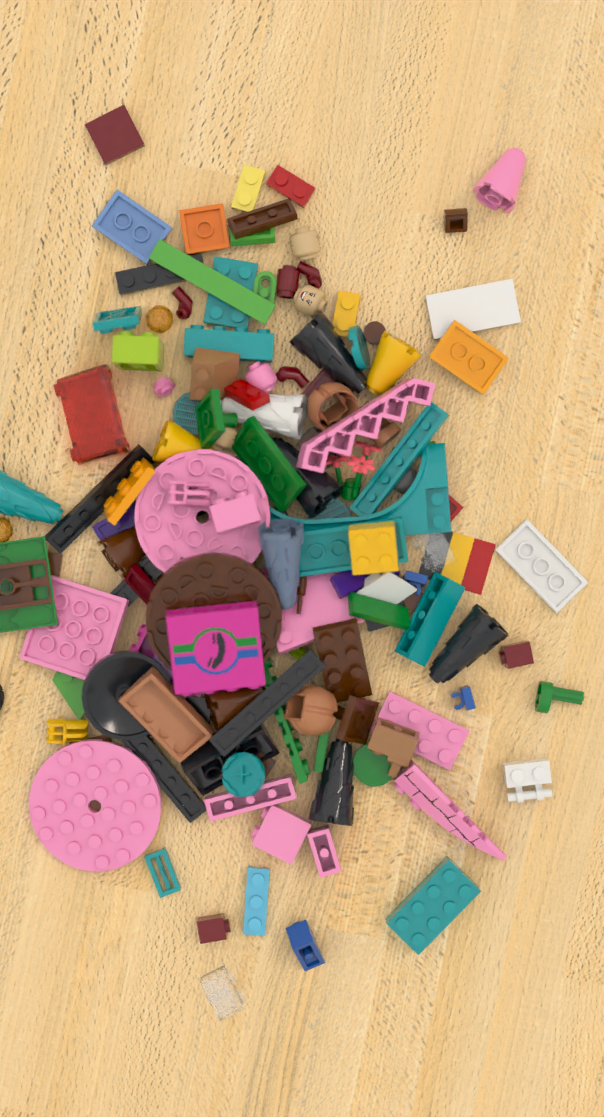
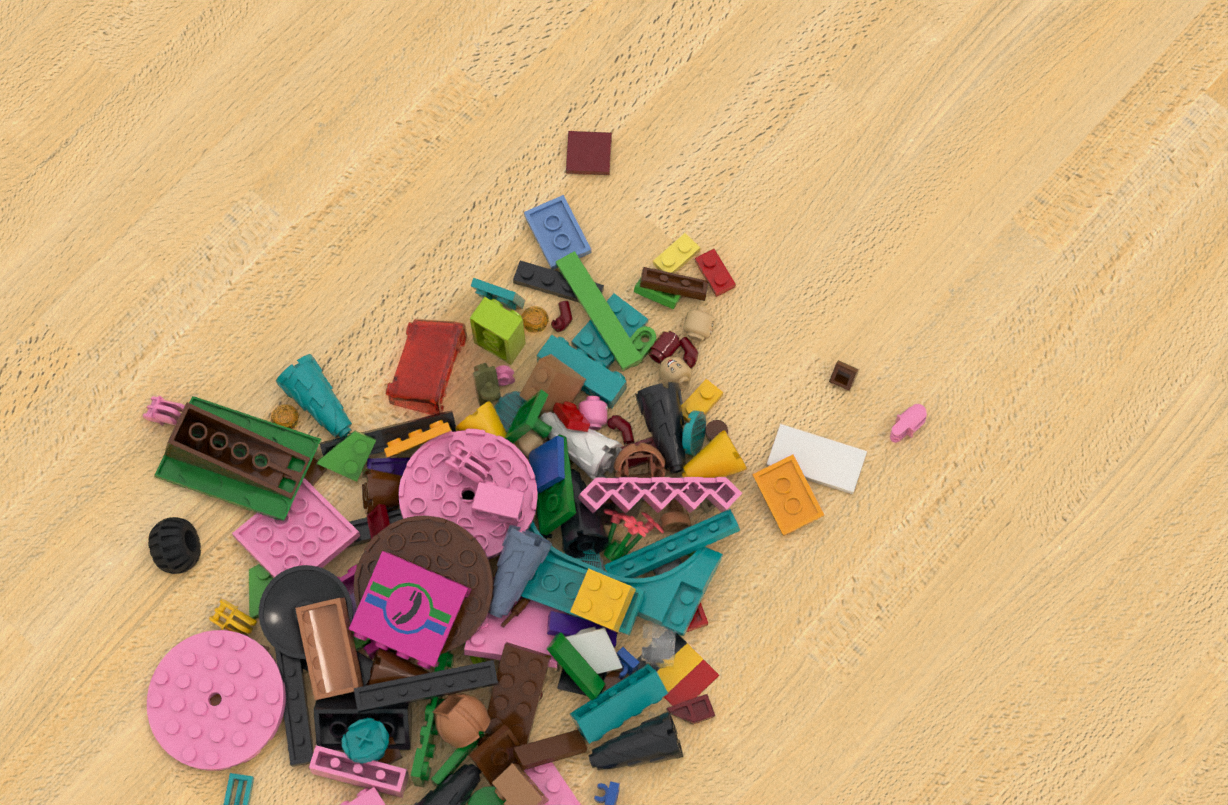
camera: 30 degrees right, 20 degrees down
(76, 535) = (349, 455): none -> bright green wing
(155, 405) = (486, 383): none -> olive hips
(204, 229) = (619, 266): orange plate -> none
(253, 449) = (548, 463): none -> blue tile
(395, 690) = (550, 749): none -> reddish brown tile
(492, 586) = (693, 710): none -> dark red tile
(502, 181) = (901, 364): bright pink cone -> none
(516, 654) = (680, 782): dark red brick -> none
(534, 232) = (908, 422): none -> bright pink arm
(541, 566) = (750, 717): white tile -> none

